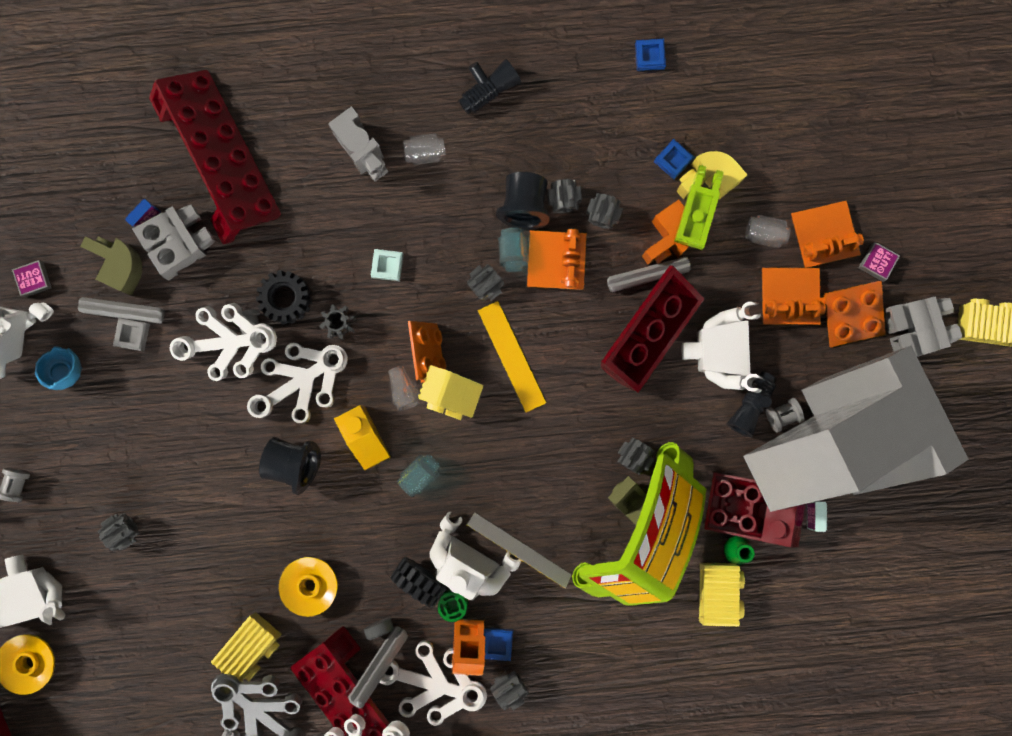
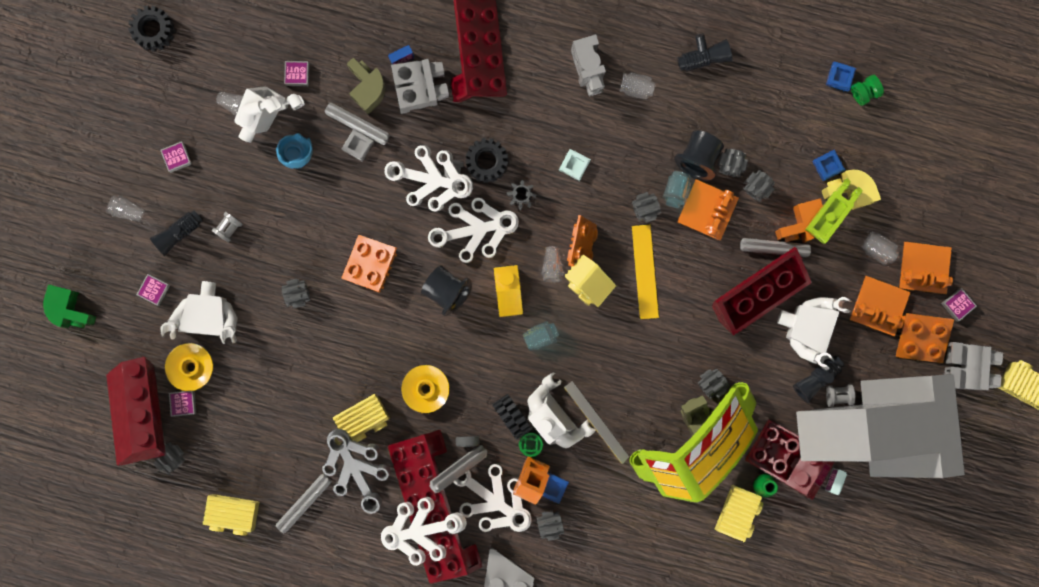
camera: 15 degrees right, 0 degrees up
(34, 708) = (182, 403): none -> tile
(193, 465) = (369, 263): none -> hinge
(688, 55) = (867, 90): none -> green wheel

